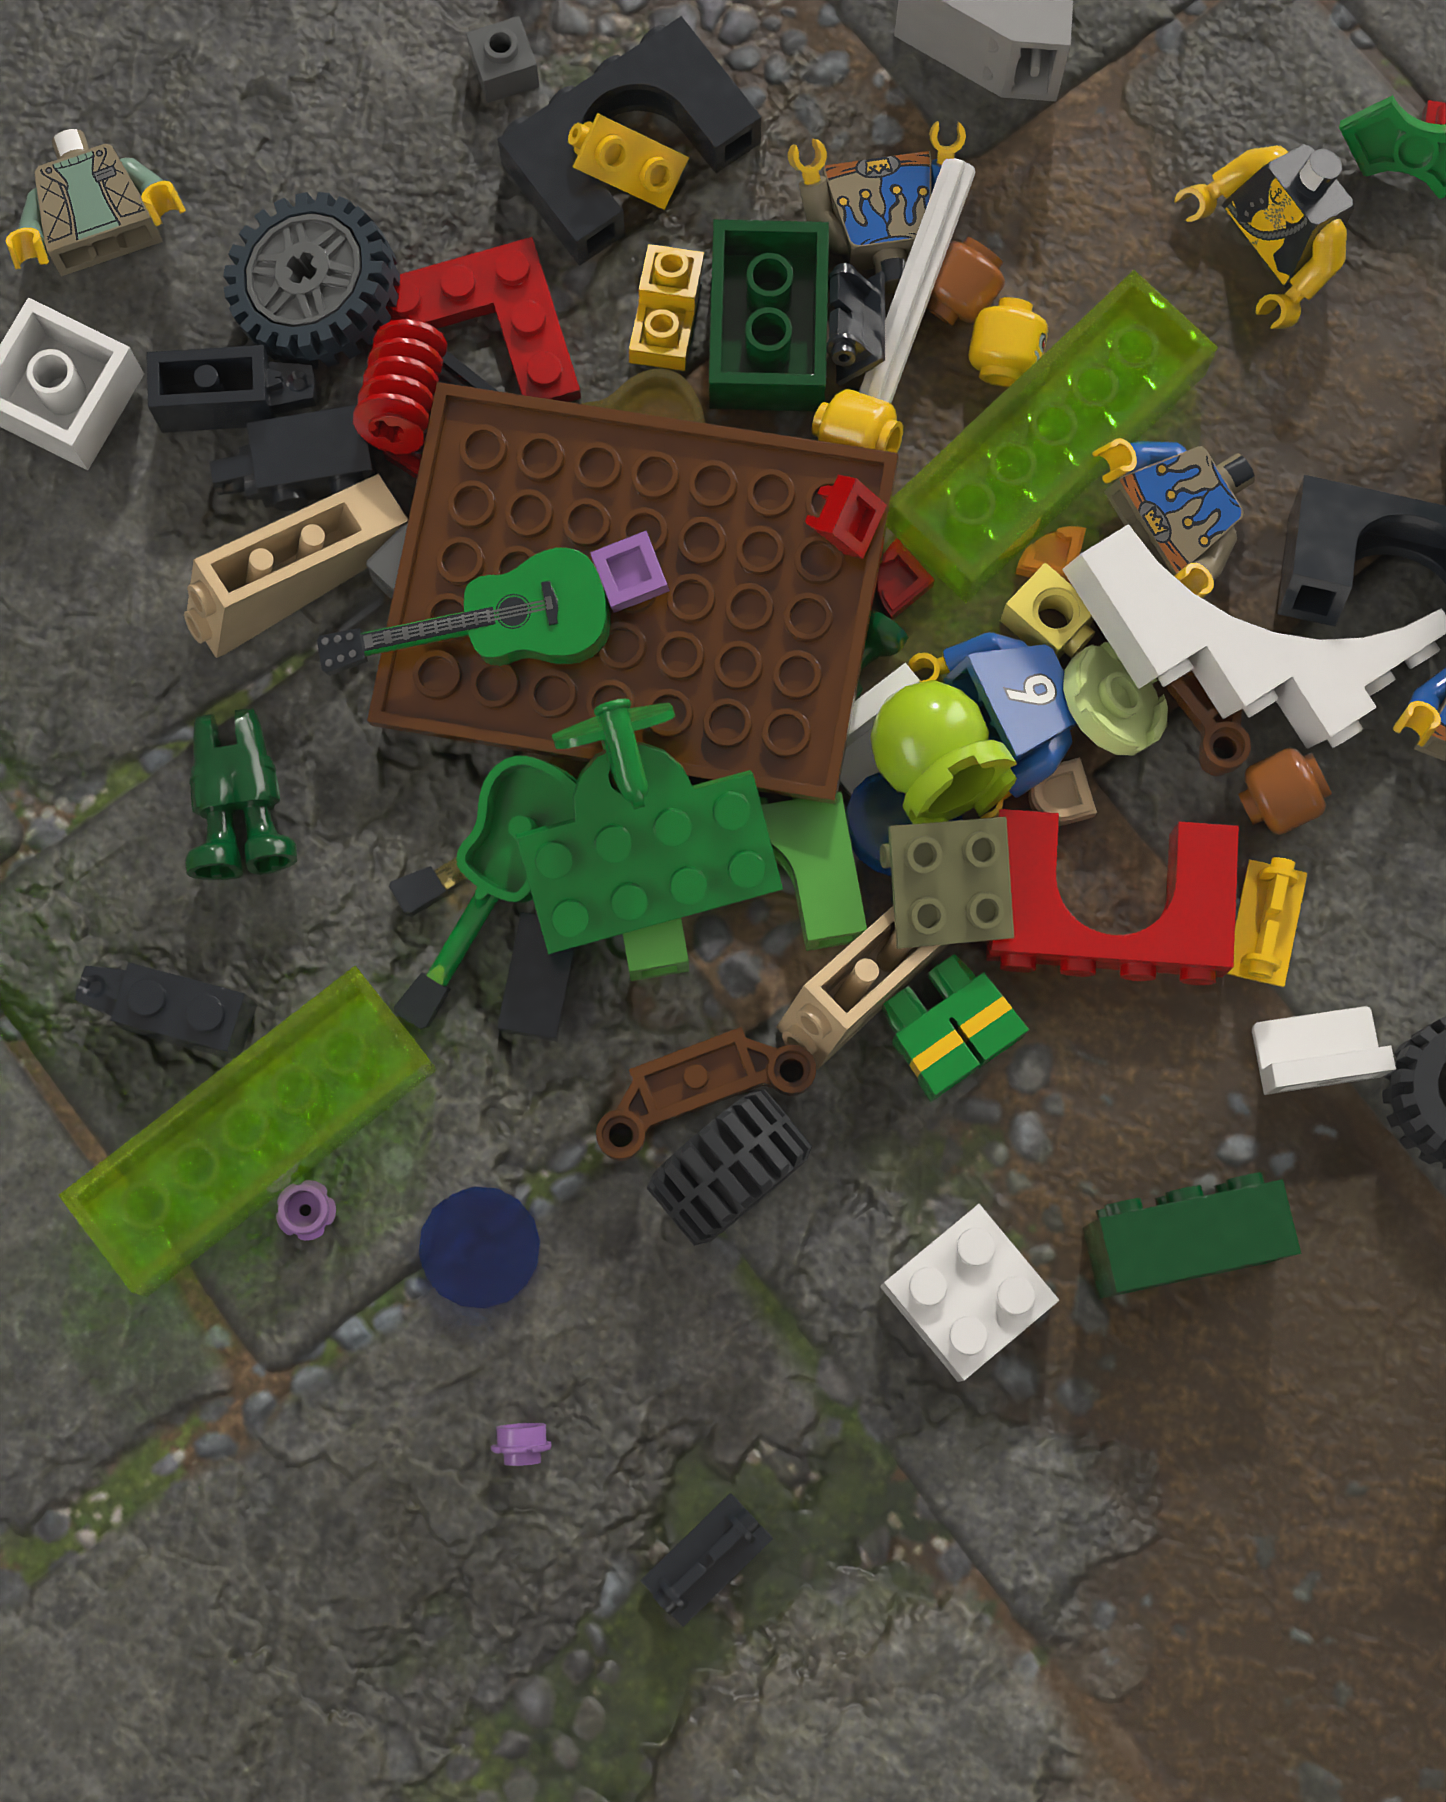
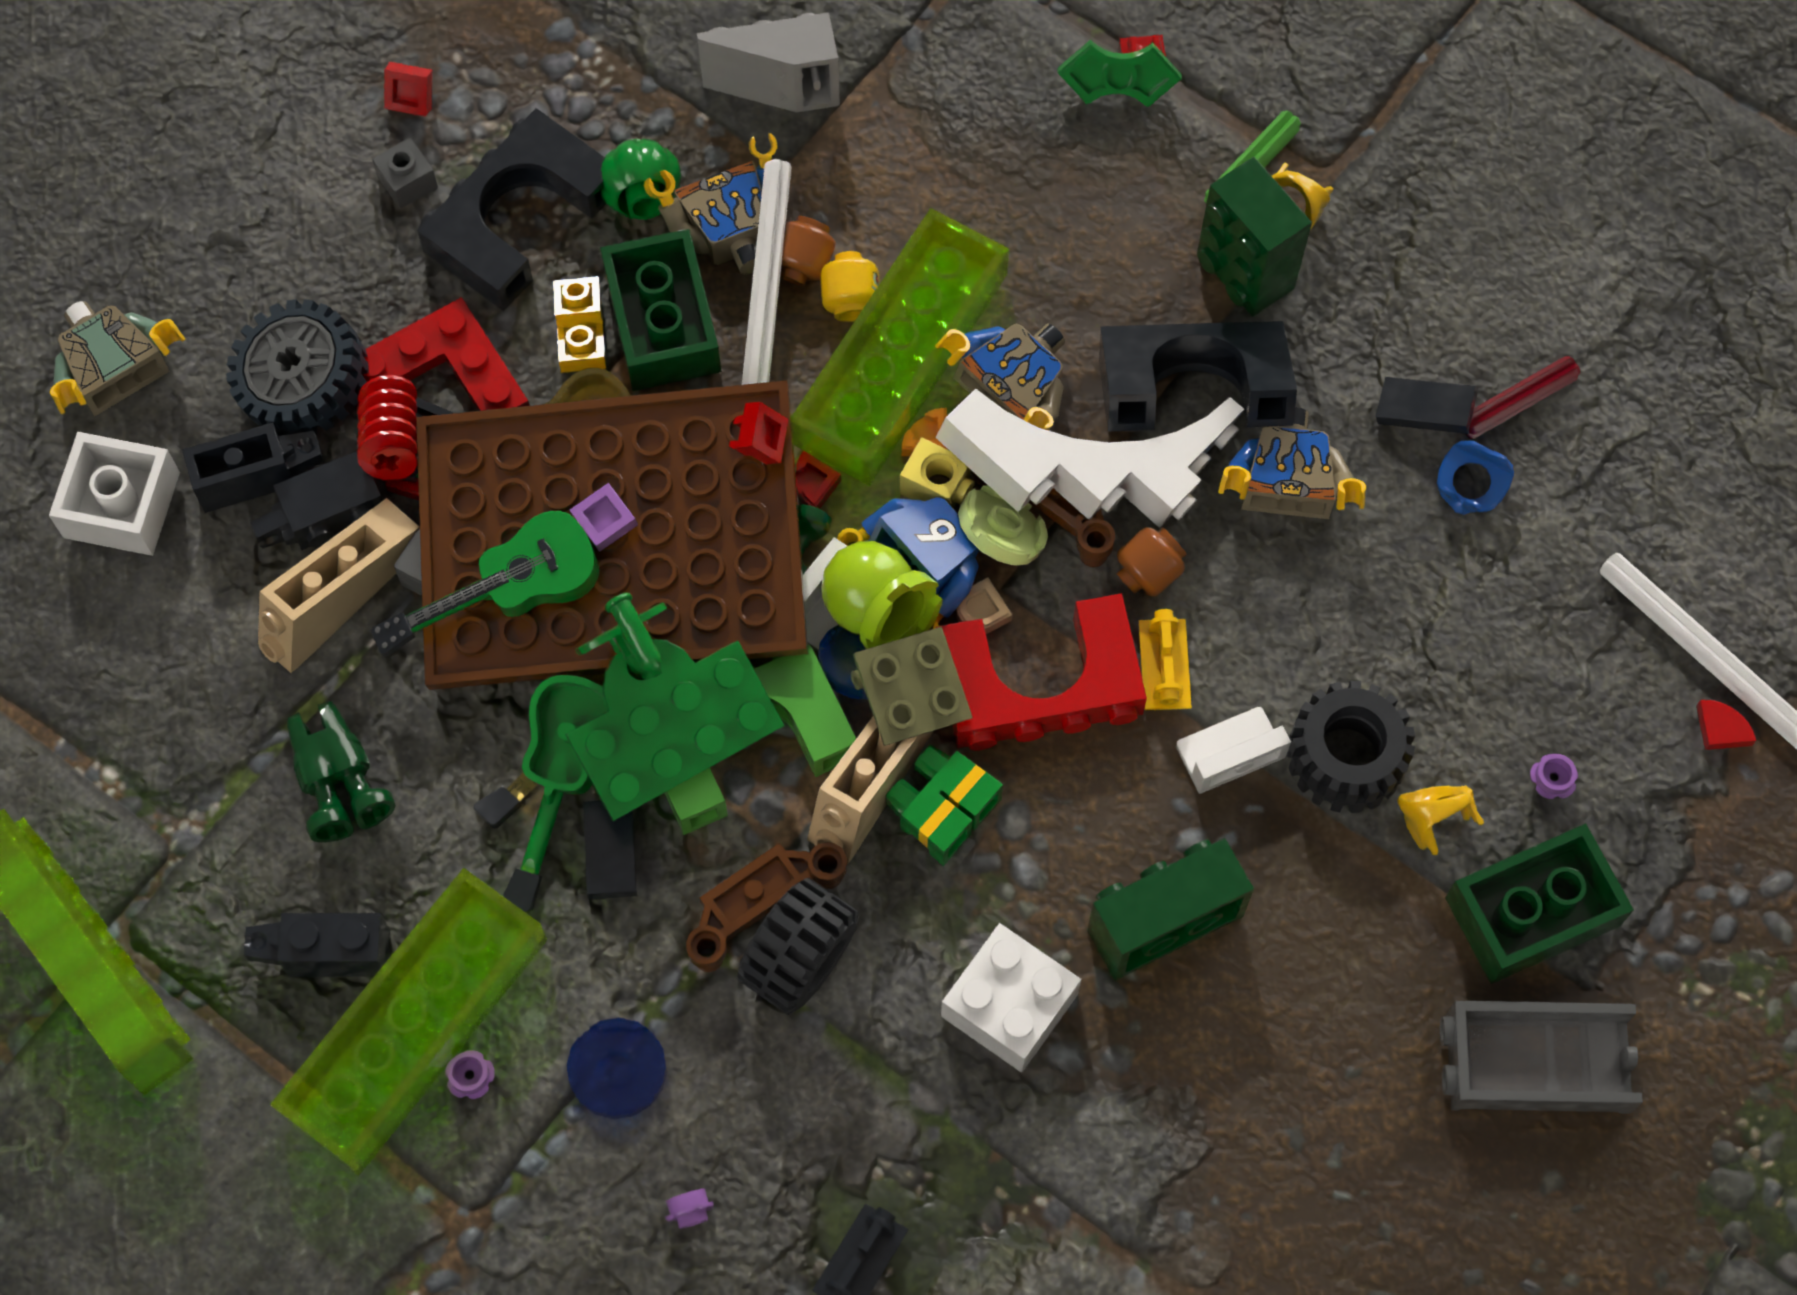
camera: 15 degrees left, 10 degrees down
(627, 159) = (521, 221): yellow hinge -> none
(776, 122) = (625, 176): none -> green plant
(857, 322) = (729, 297): black hinge -> none
(858, 422) = (750, 366): yellow head -> none
(1290, 215) = (1036, 142): torso -> none

